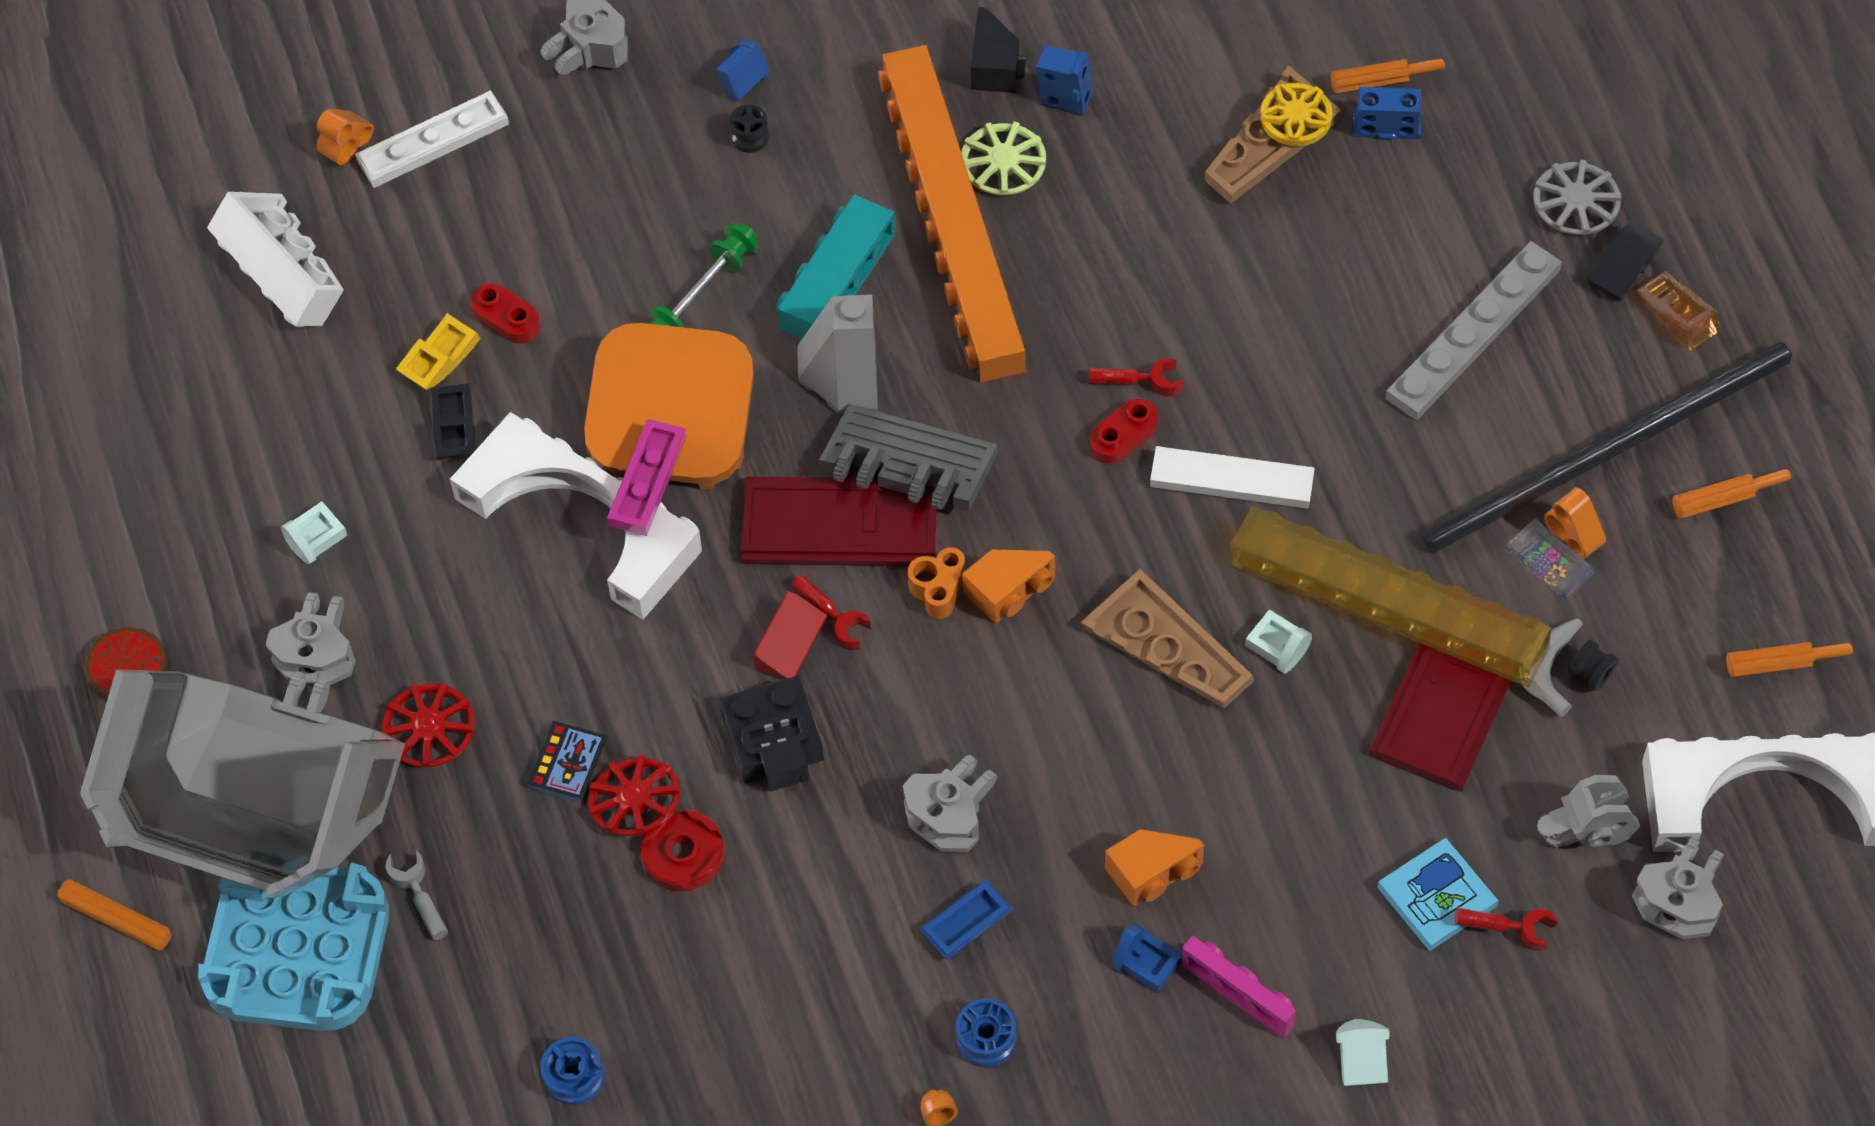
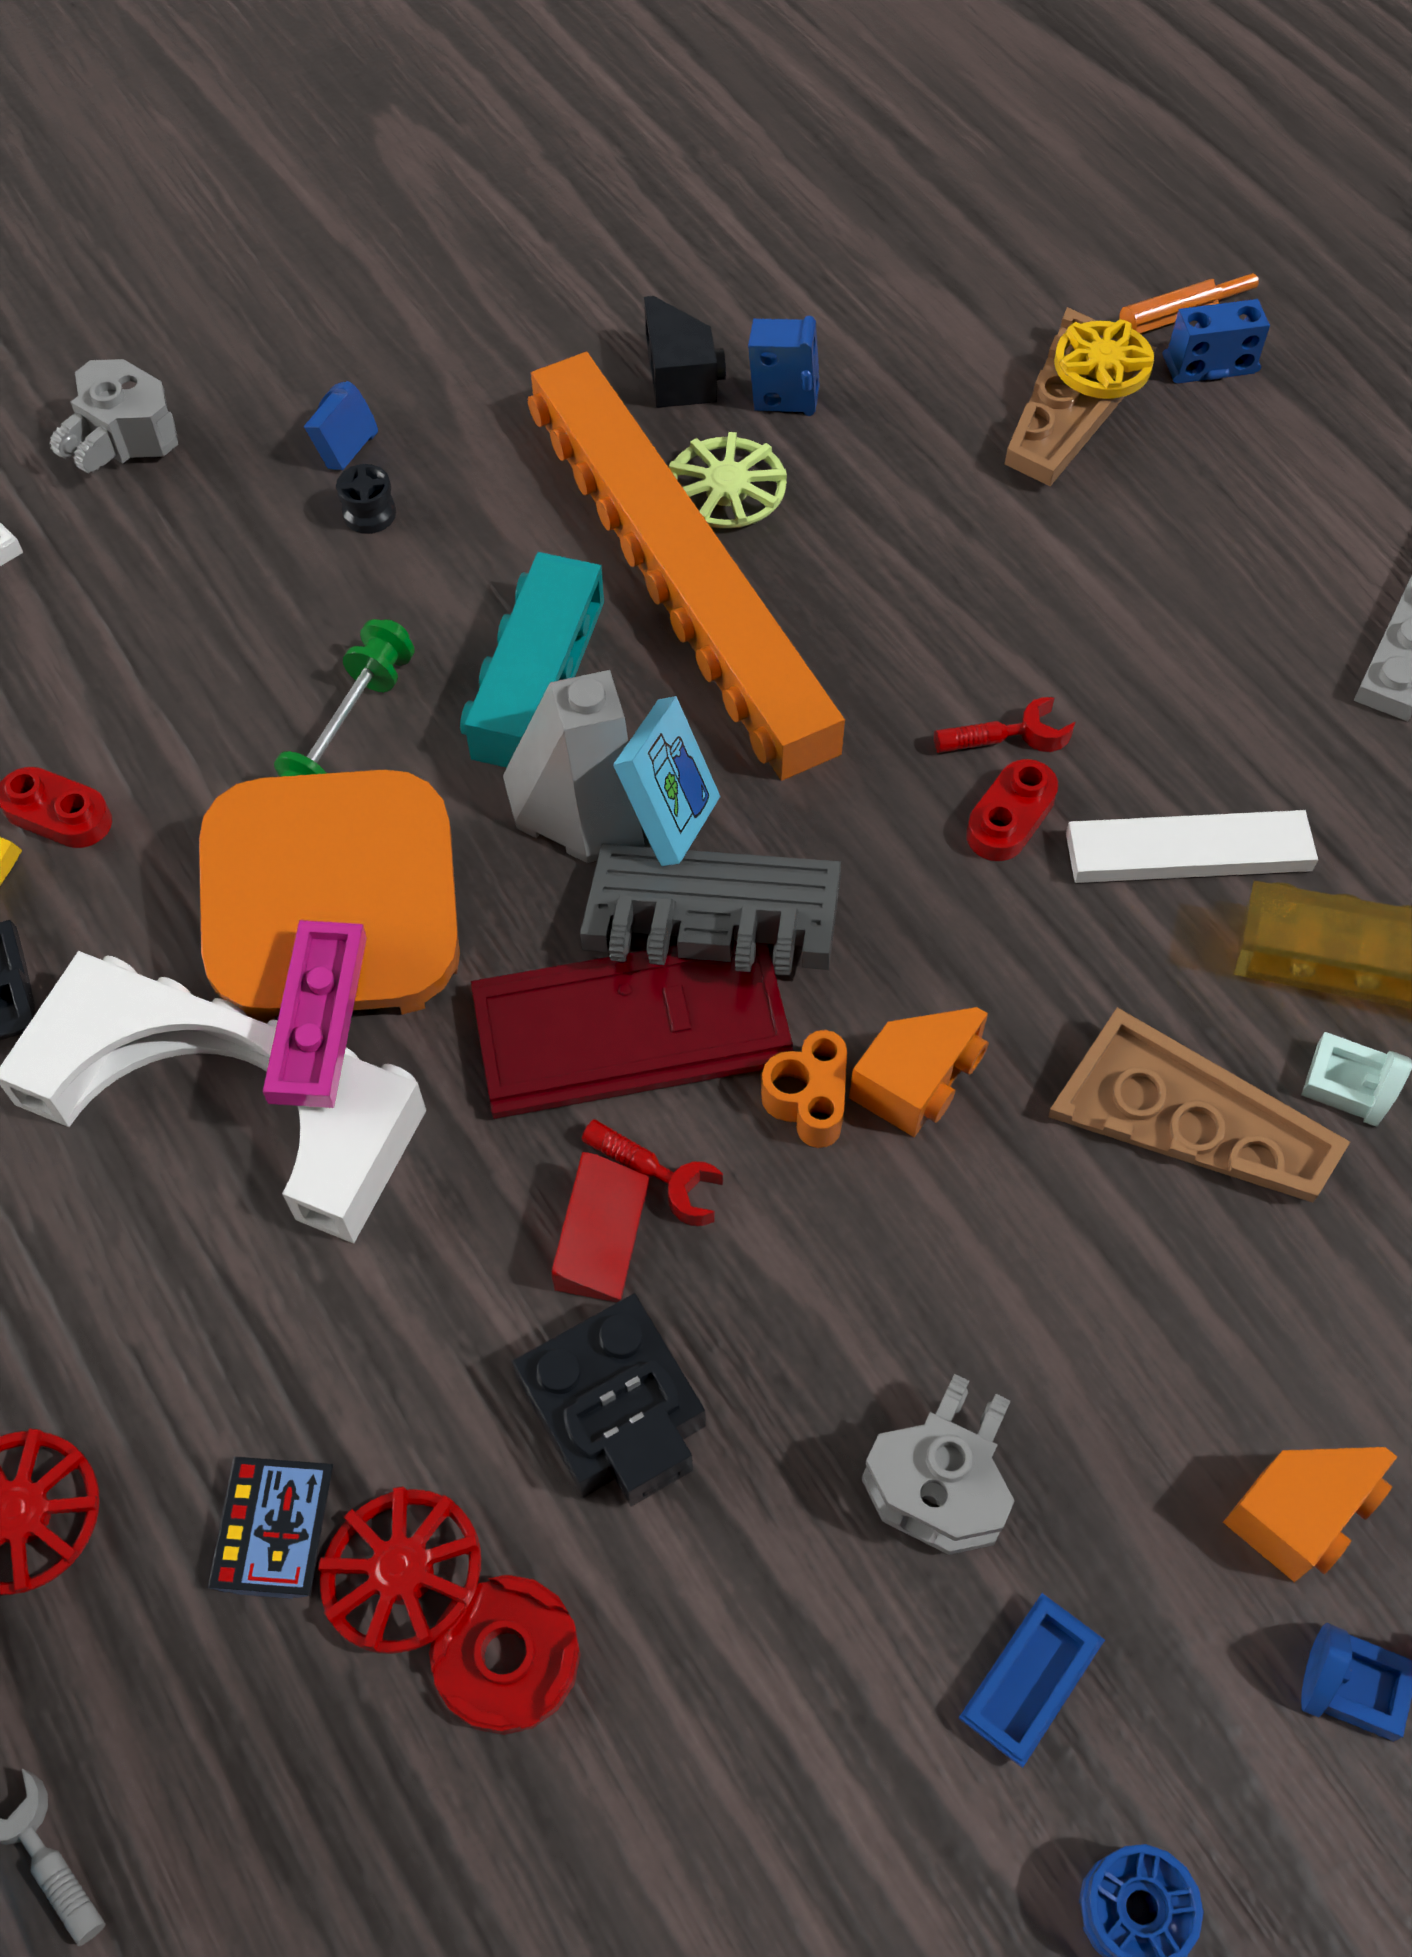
camera: 15 degrees left, 0 degrees up
(897, 371) = (667, 781): none -> medium azure tile

